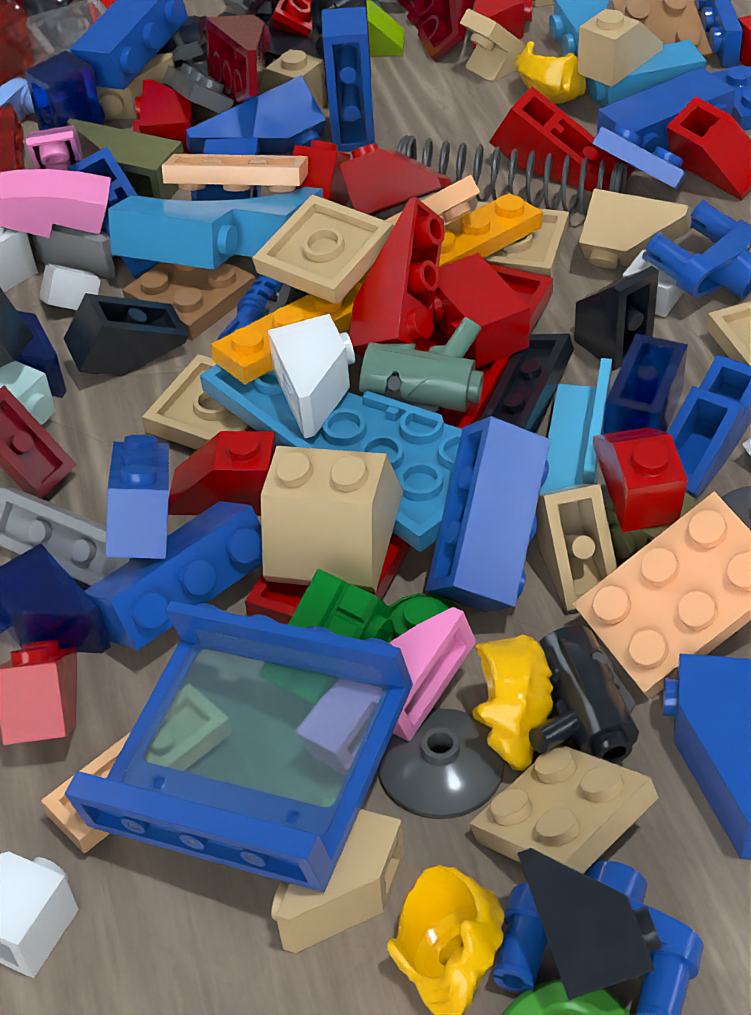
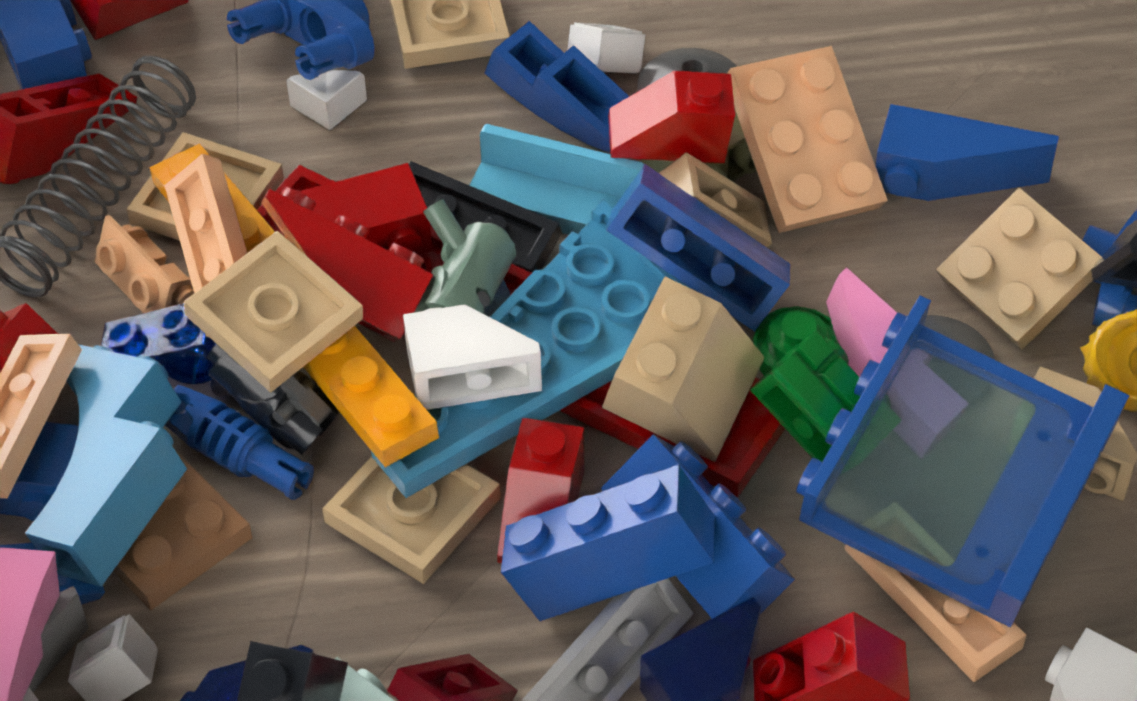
camera: 85 degrees left, 5 degrees up
(121, 334) = (263, 585): black slope -> none
(387, 179) = (75, 275): red slope -> none
(517, 696) = (903, 268): yellow hair -> none
(587, 698) = (896, 237): black piece -> none
(615, 313) = (394, 114): black slope -> none
(624, 224) = (247, 86): tan slope -> none
(627, 147) = (136, 40): plate -> none
(646, 386) = (528, 105): clear blue brick -> none

